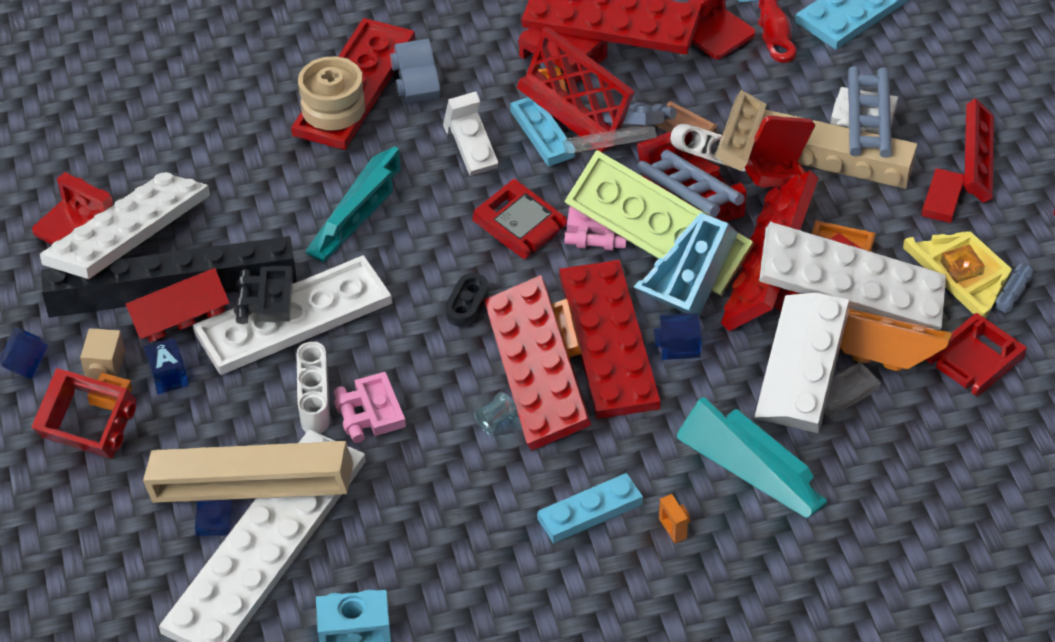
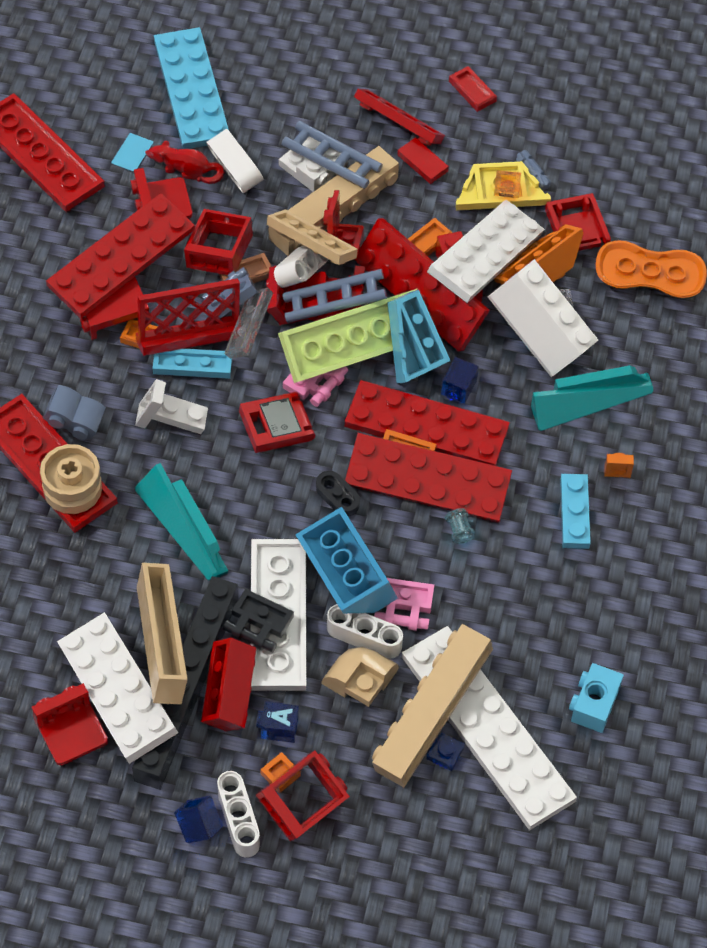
camera: 65 degrees left, 10 degrees up
(27, 387) = (240, 826): none -> white beam
(102, 353) = (240, 759): tan brick -> none
(193, 221) = (161, 634): none -> tan brick
(262, 407) = (360, 674): none -> tan brick
(373, 333) = (346, 564): none -> dark azure slope
(677, 68) = (216, 259): none -> red window
(806, 55) = (235, 161): none -> white beam
(974, 456) = (671, 272): none -> orange plate

